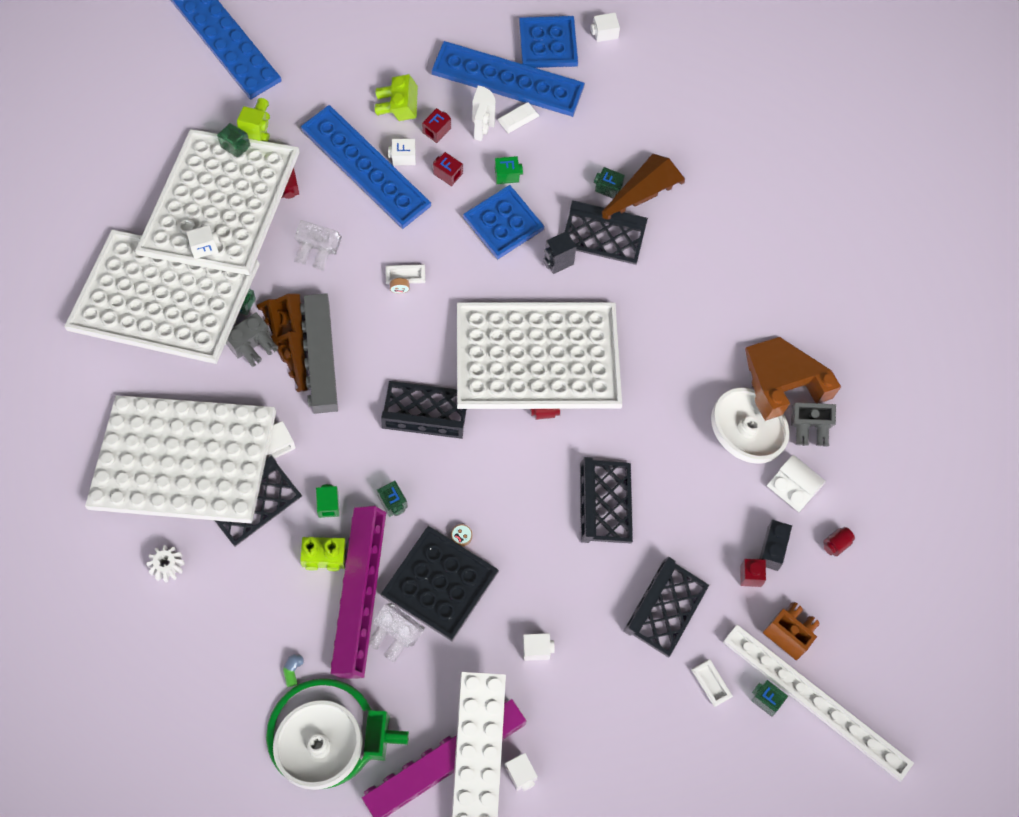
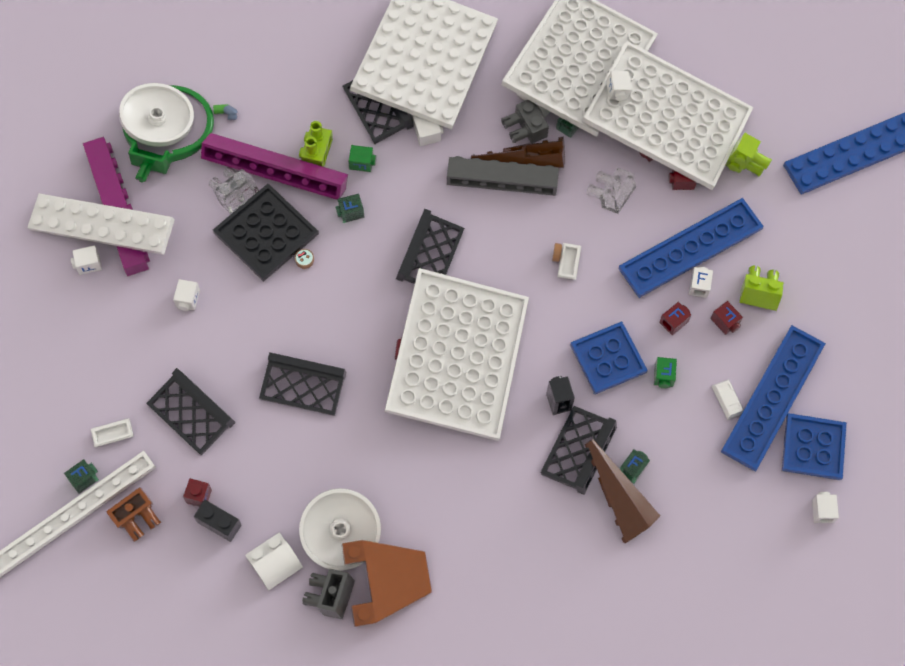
camera: 105 degrees right, 0 degrees up
(163, 556) = (339, 34): white gear -> none
(234, 140) = (728, 133): clear green brick -> none
(483, 112) = (730, 359): white brick -> none
(838, 541) = (205, 583): dark red brick -> none

